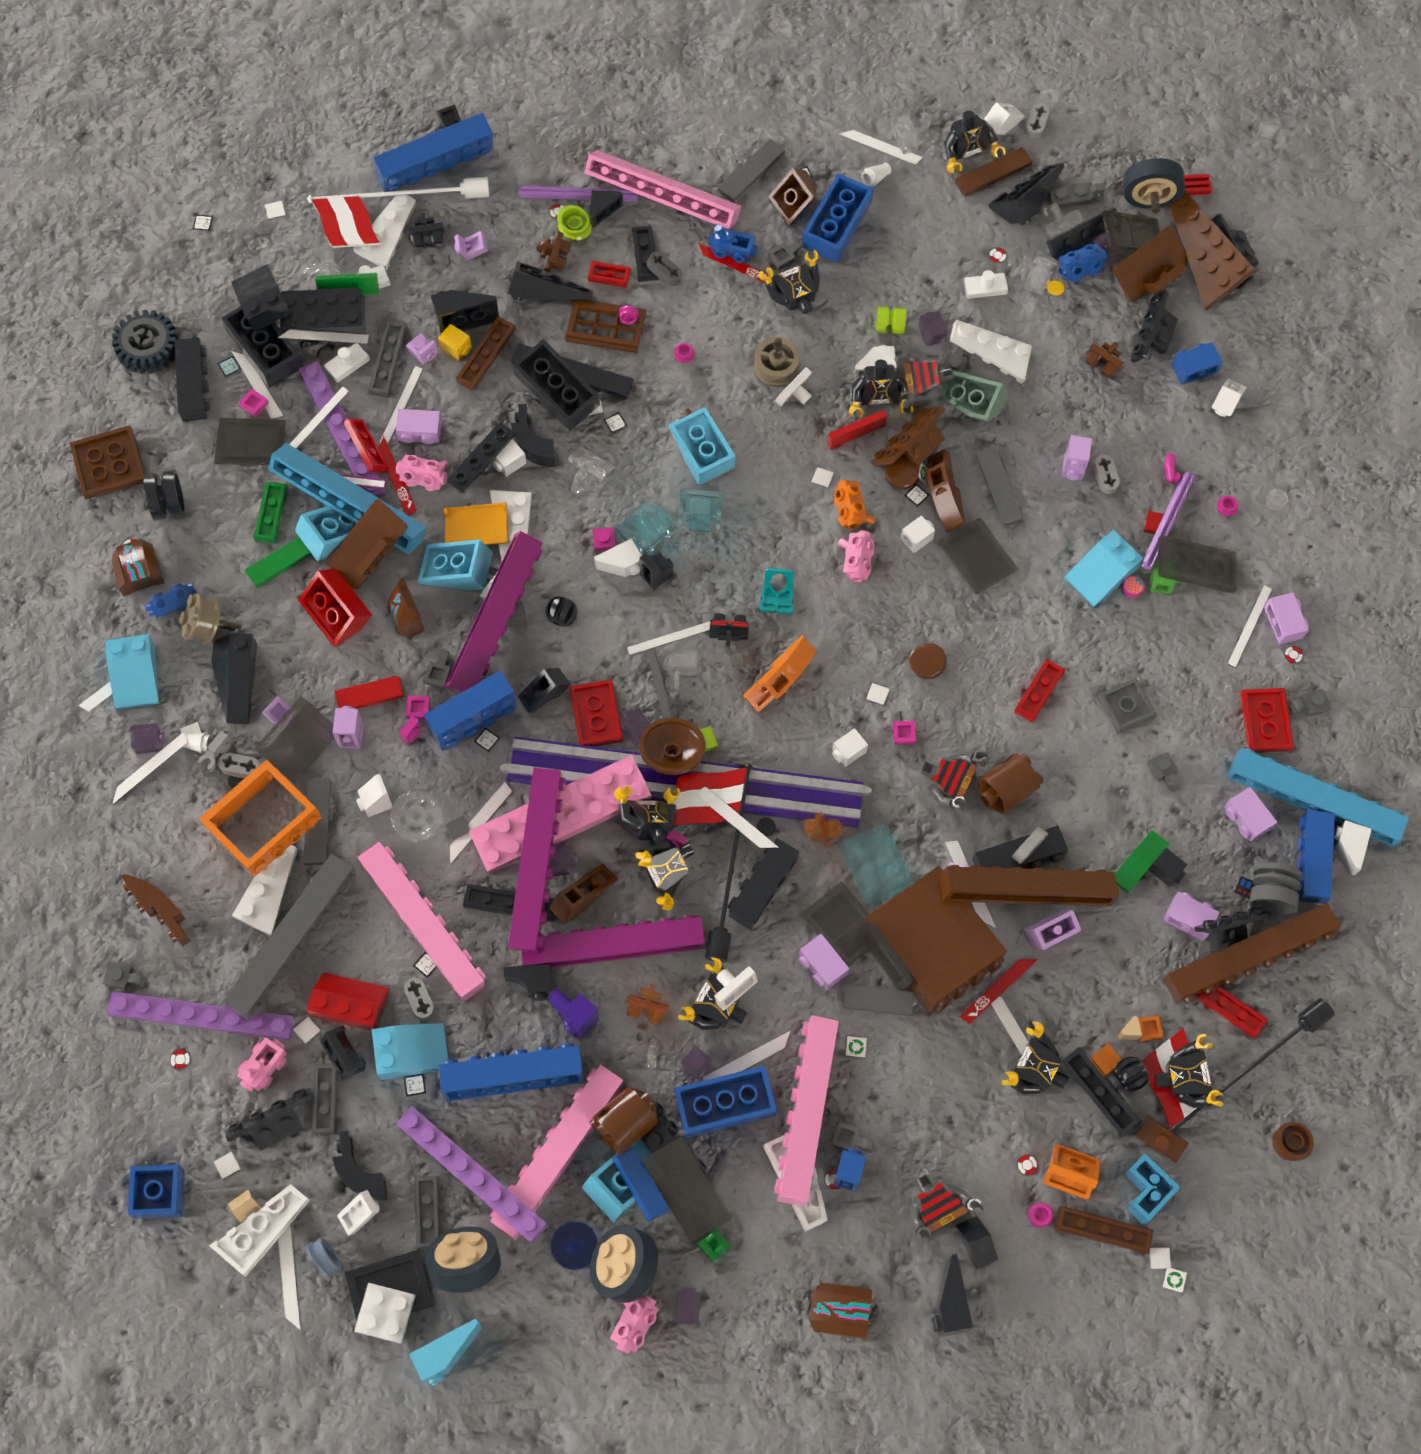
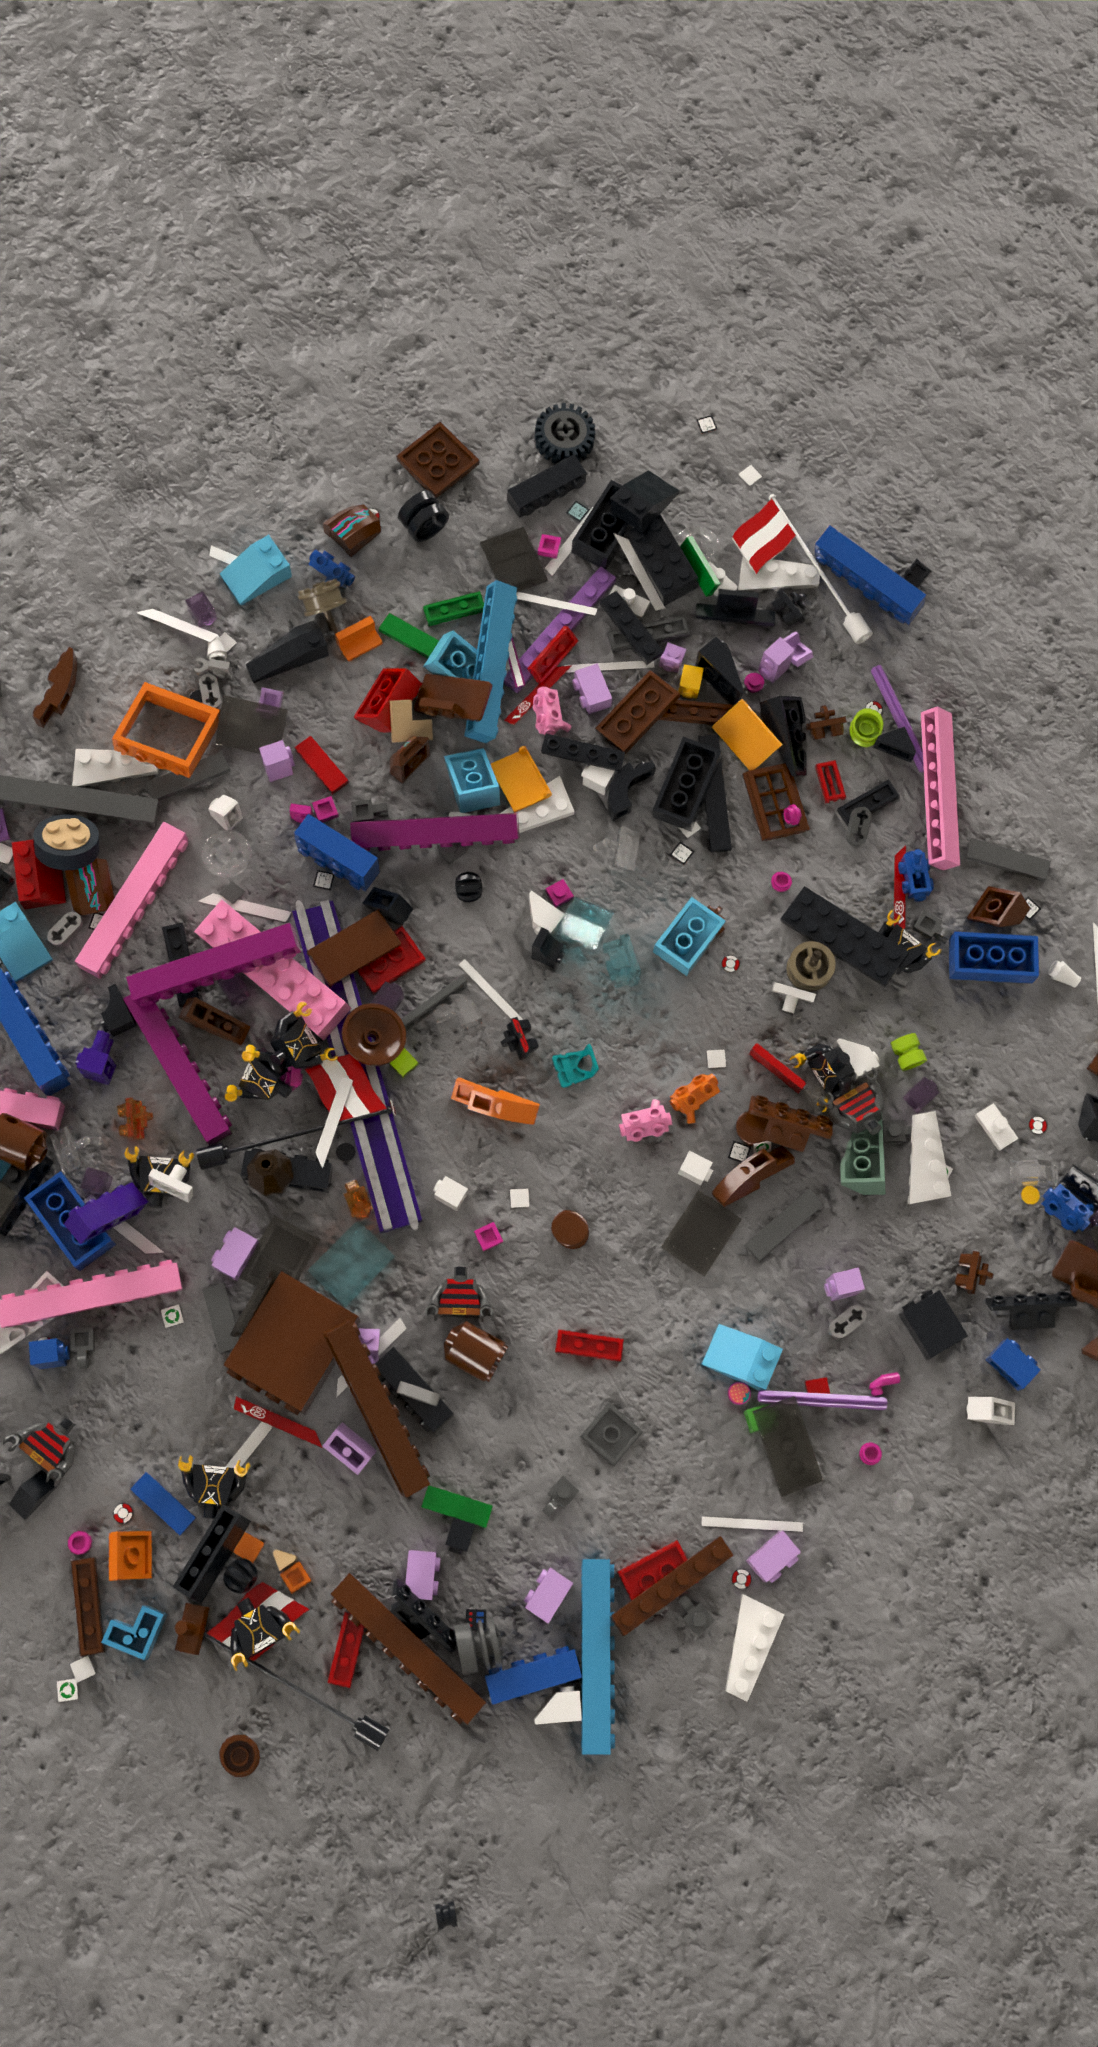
camera: 60 degrees right, 5 degrees up
(257, 608) = (358, 639): none -> orange panel
(335, 954) = (66, 842): none -> black wheel
(370, 600) = (402, 724): none -> tan tile
(375, 367) = (631, 627): none -> black plate
(387, 957) = (91, 887): none -> reddish brown slope
(403, 275) = (736, 607): none -> black bracket
(463, 396) = (637, 712): none -> reddish brown plate
(474, 262) = (776, 660): none -> lavender brick
(483, 289) = (754, 682): none -> dark pink plate
(533, 318) = (747, 735): none -> light orange piece
(574, 734) = (353, 948): none -> reddish brown tile
(737, 1057) = (105, 1212): none -> dark purple brick
(739, 427) = (730, 963): none -> sticker
(762, 894) = (270, 1172): none -> dark brown cone
(765, 319) = (845, 936): none -> black plate
(1034, 1122) = (163, 1503): none -> blue tile
(1137, 408) = (932, 1324): none -> black brick
(1282, 709) = (671, 1586): none -> reddish brown plate
(1349, 665) = (752, 1641): none -> white wing

